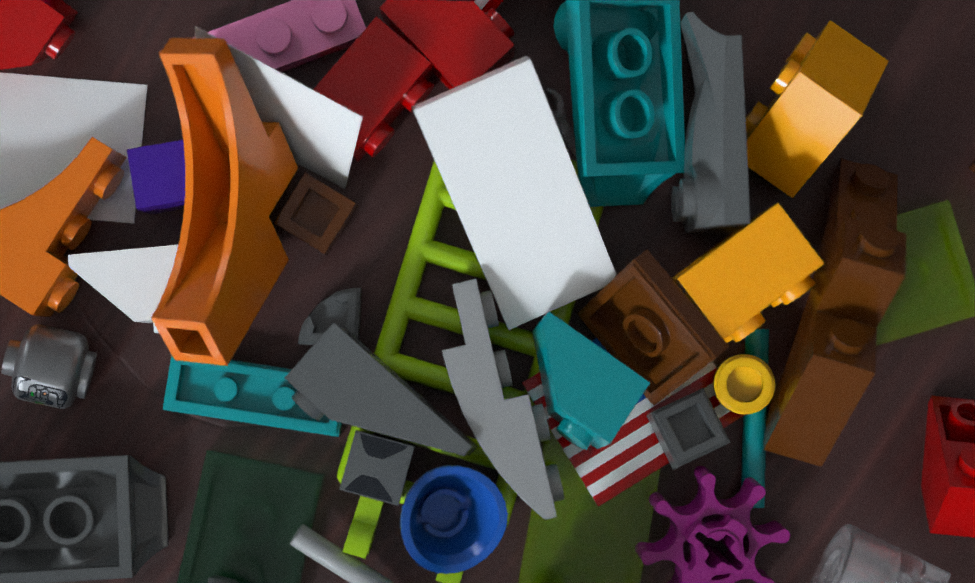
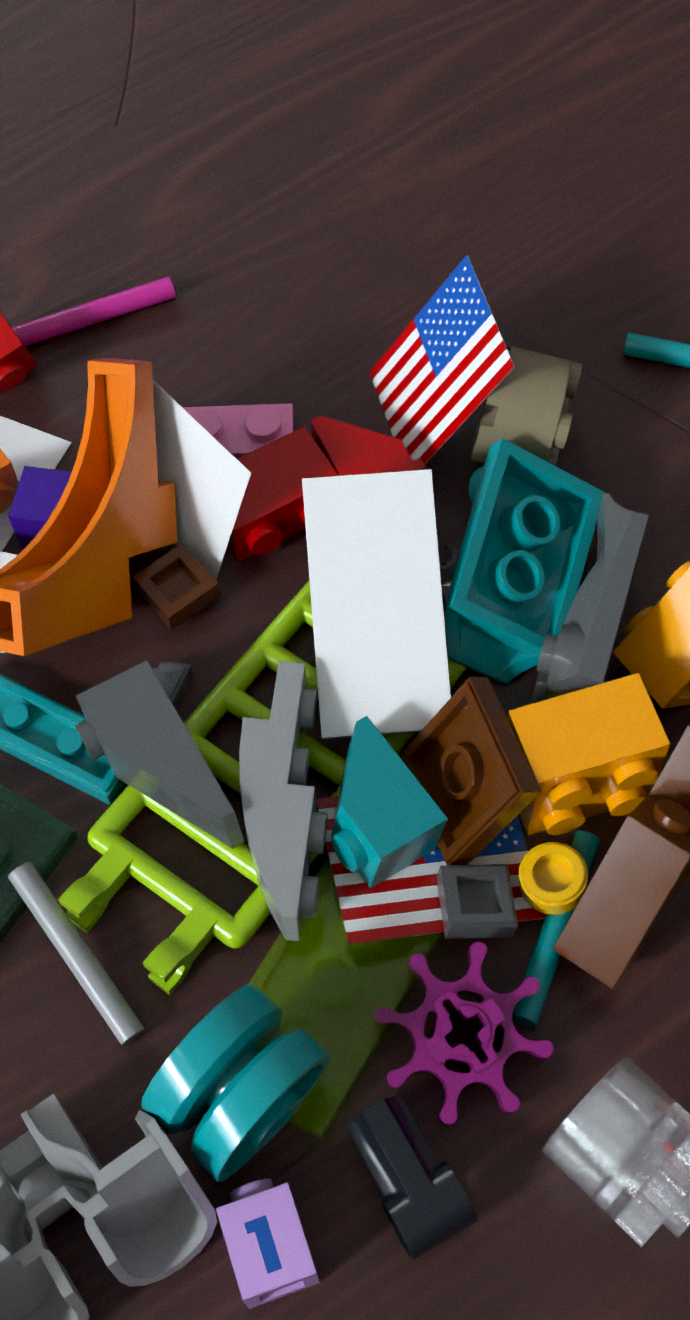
camera: 20 degrees right, 25 degrees down
(377, 467) = (132, 827): dark grey tile -> none
(452, 519) = (184, 886): blue helmet -> none

